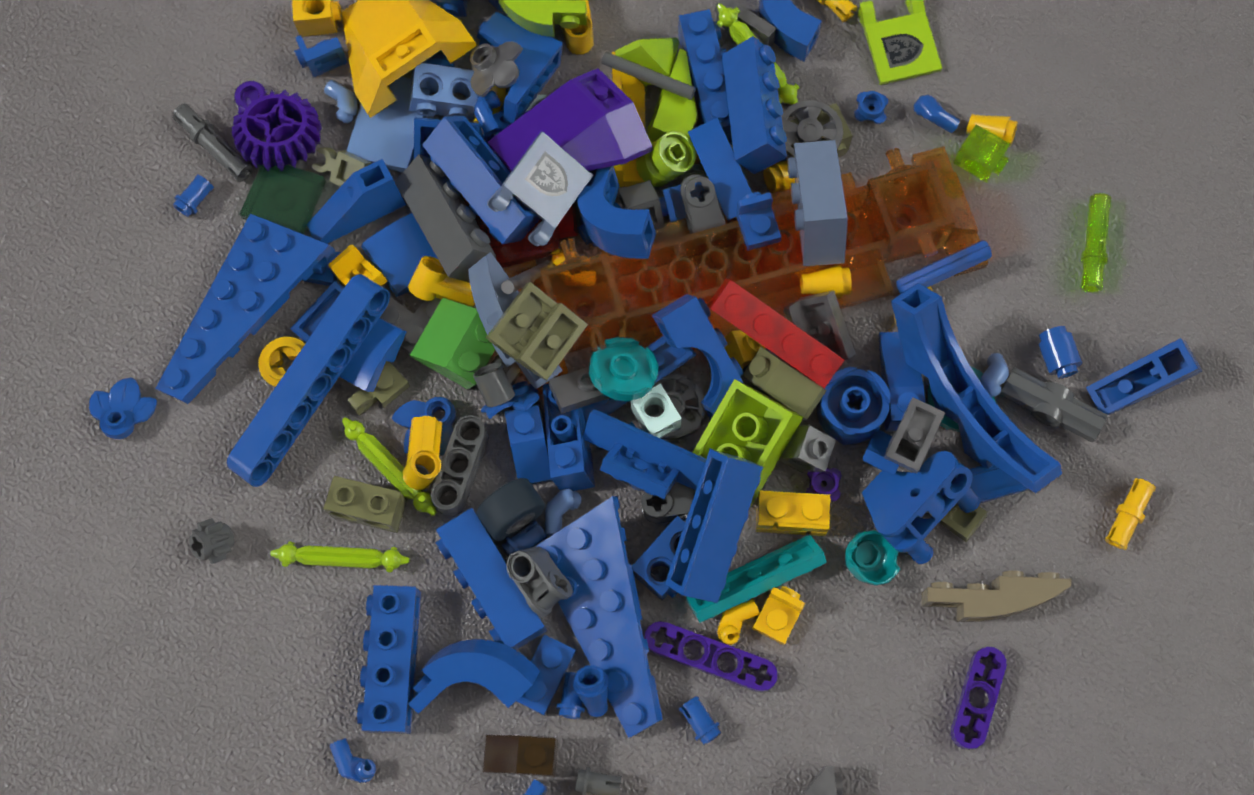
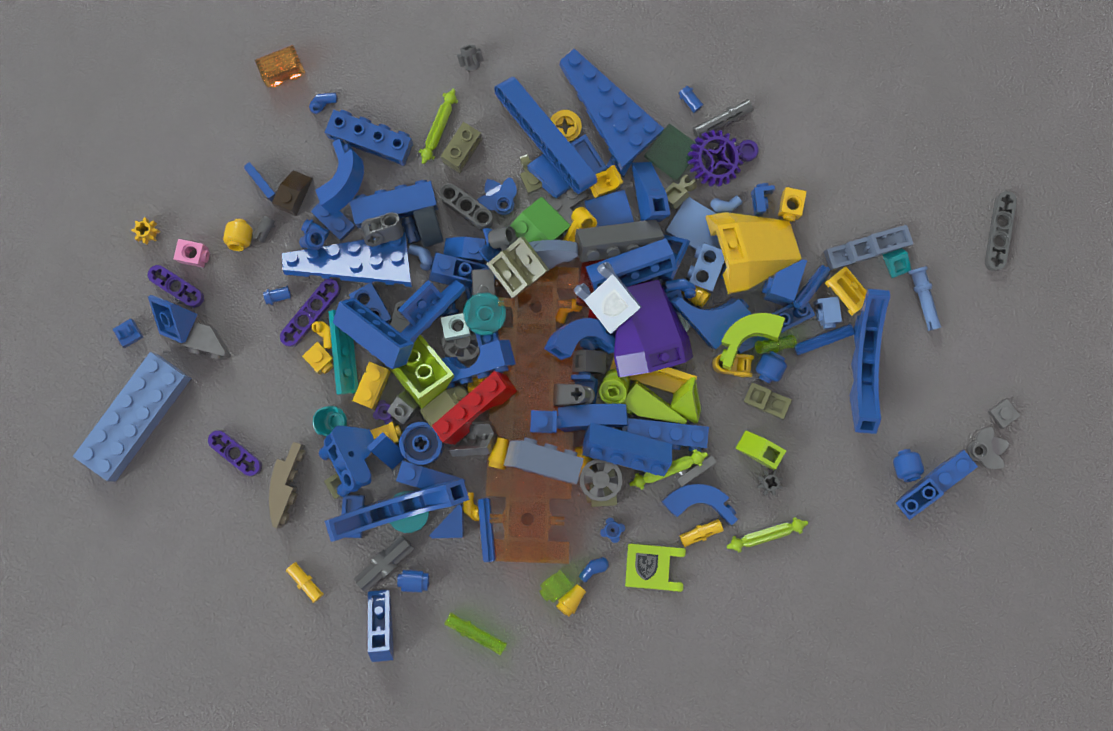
camera: 105 degrees right, 10 degrees up
(121, 404) = (572, 26): blue plate -> none
(386, 464) = (482, 166): lime wheel -> none
(424, 451) = (482, 188): yellow piece -> none
(494, 66) = (707, 299): flat silver plate -> none
(519, 281) = (560, 276): flat silver bar -> none
(648, 75) = (671, 392): dark grey bar -> none
(852, 467) = (391, 430): none -> yellow bracket
(914, 435) = (384, 466): flat silver slope -> none
(967, 326) = (451, 526): none -> blue slope
(995, 374) = (412, 536): medium blue arm -> none

